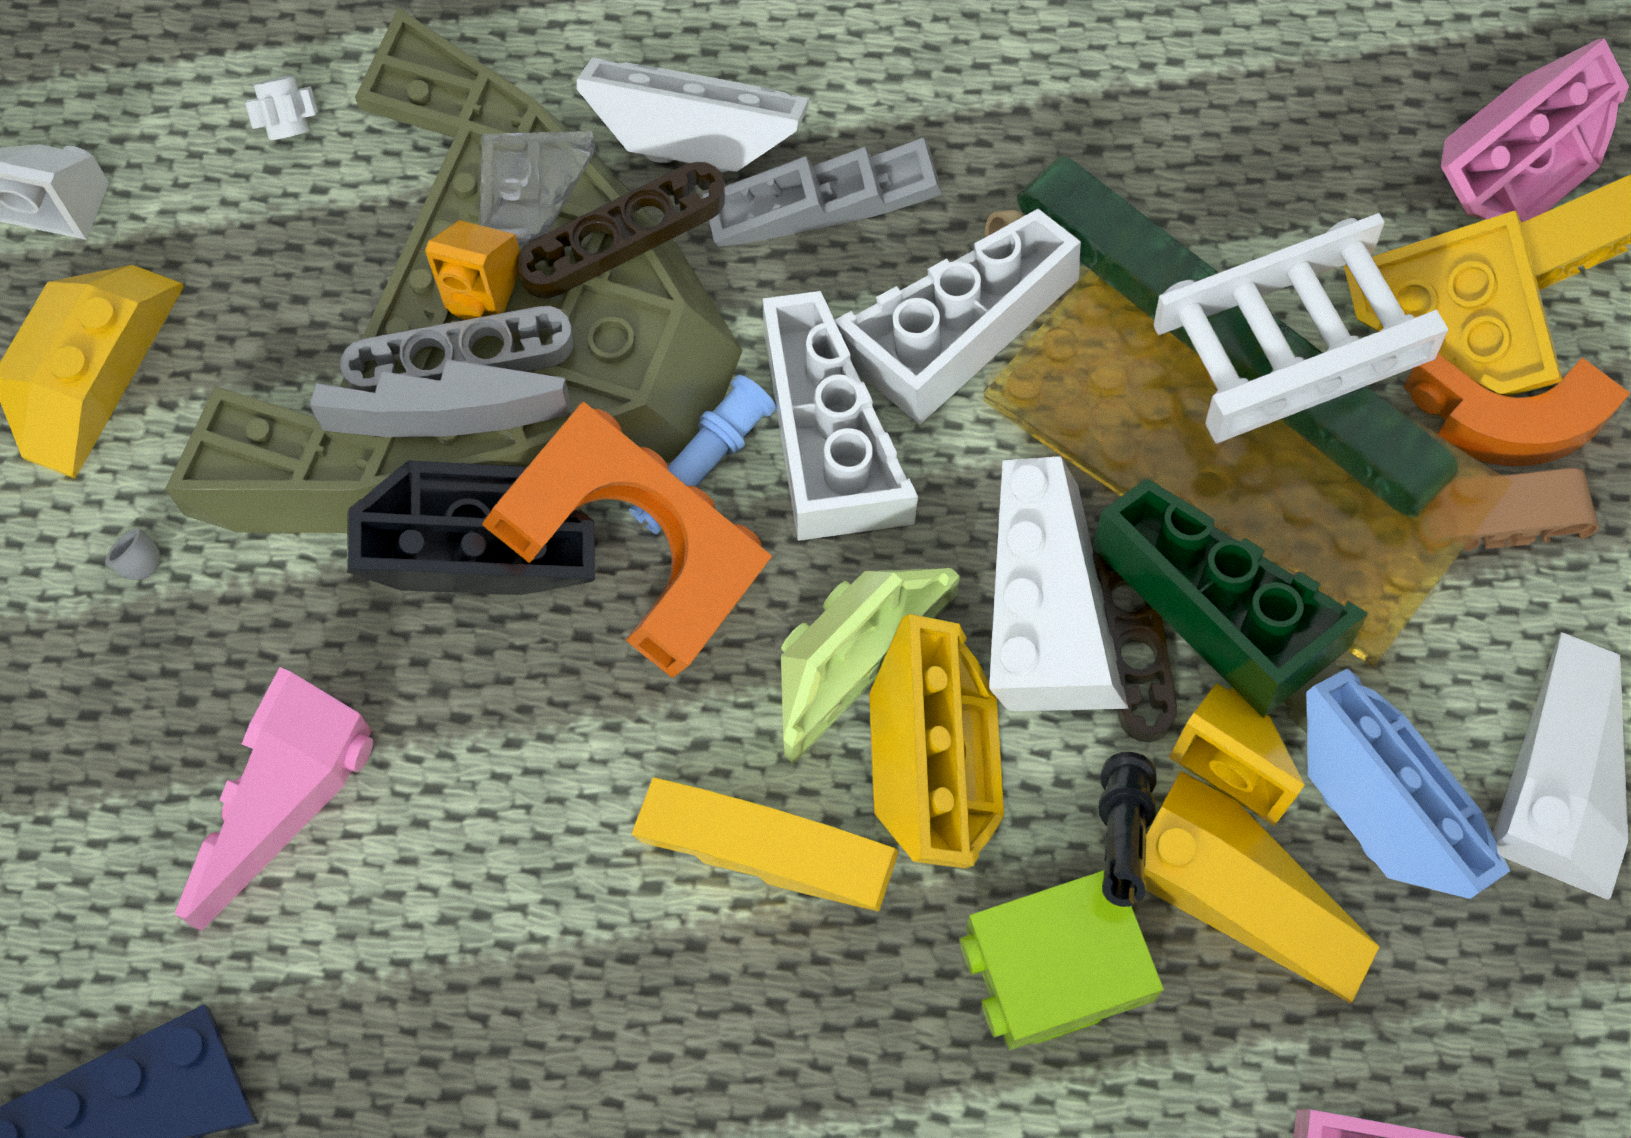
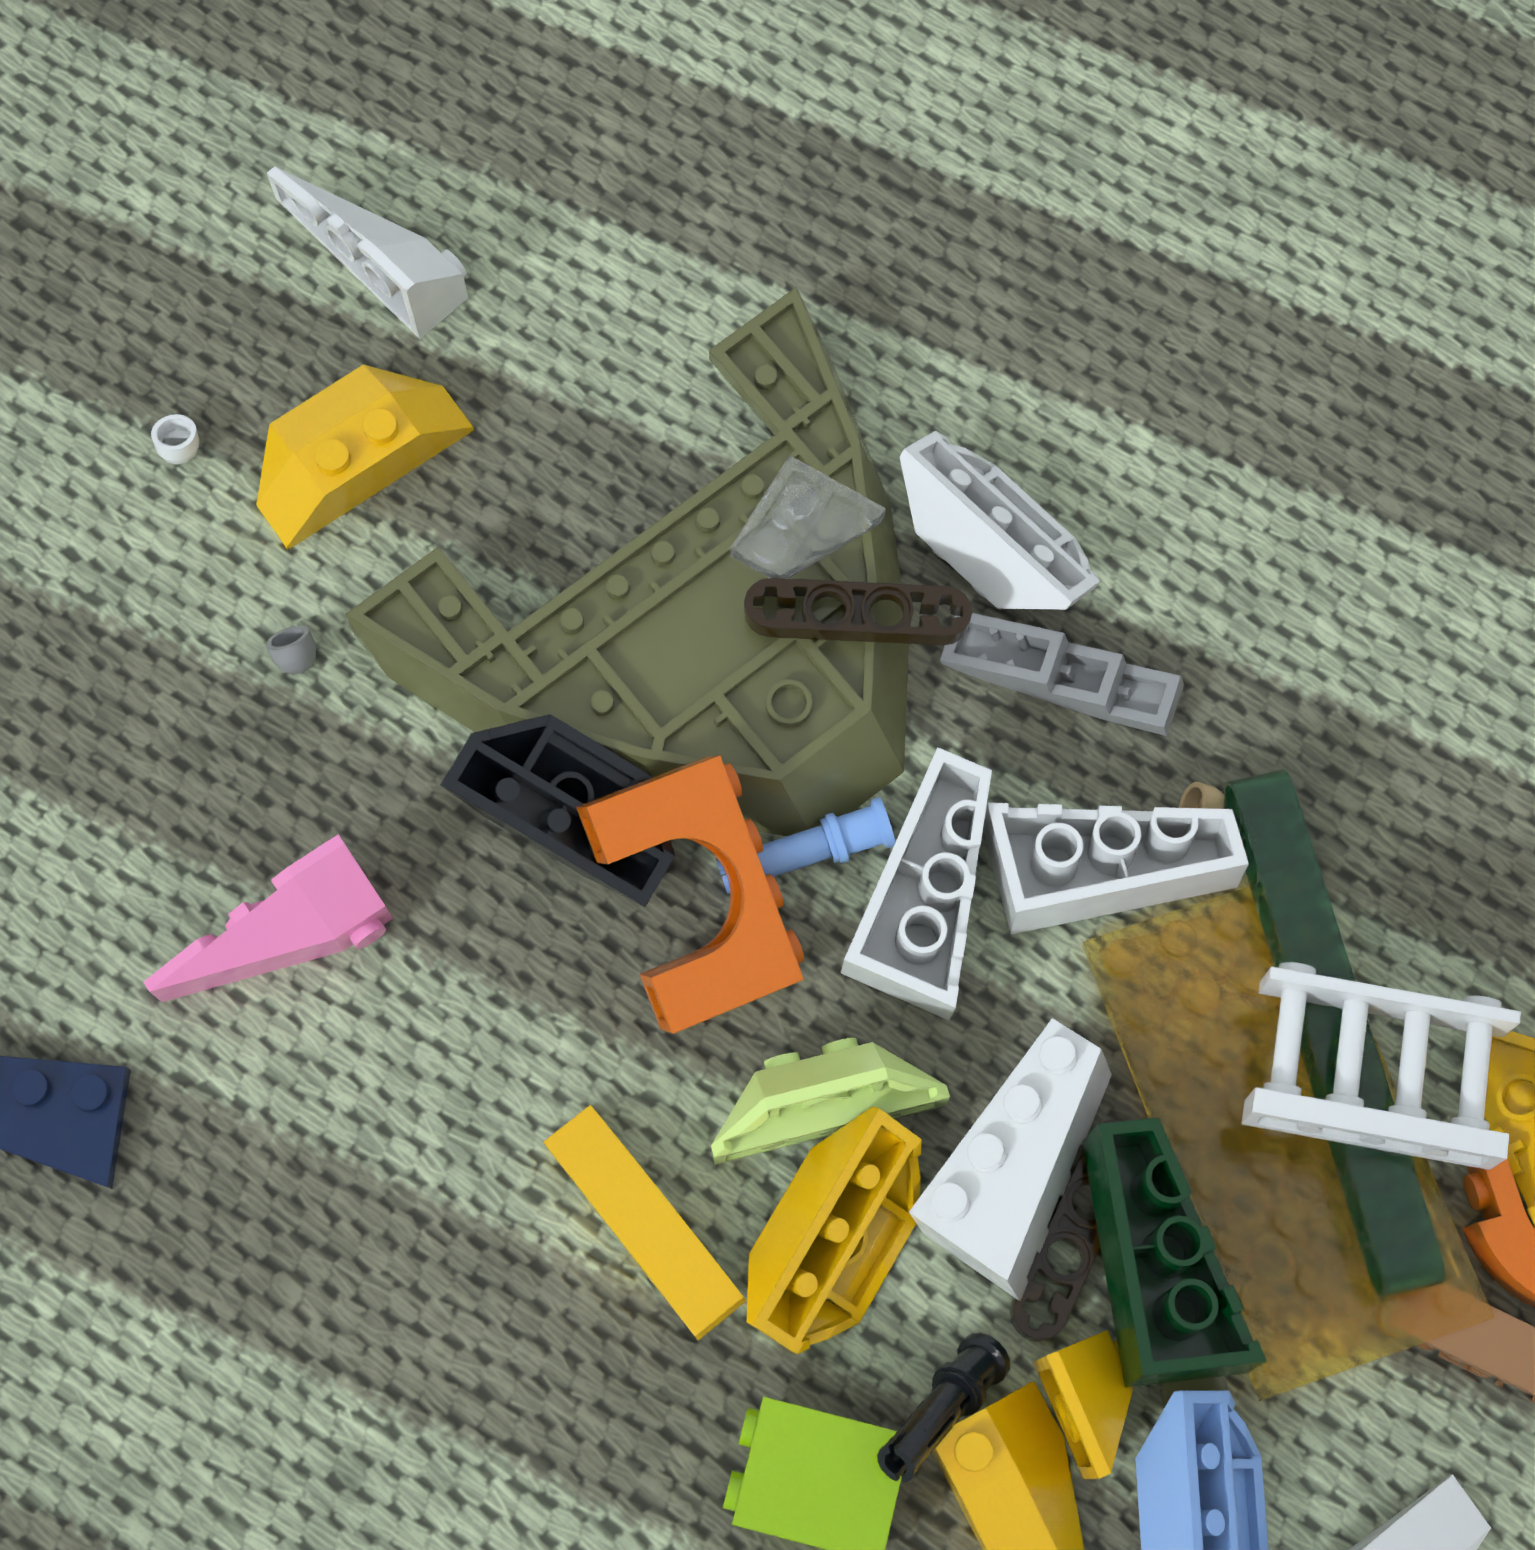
camera: 30 degrees right, 5 degrees up
(281, 107) = (647, 317): white gear -> none
(457, 342) = (647, 648): light grey beam -> none
(464, 402) = (624, 689): light grey slope -> none
(474, 268) = (706, 577): light orange slope -> none

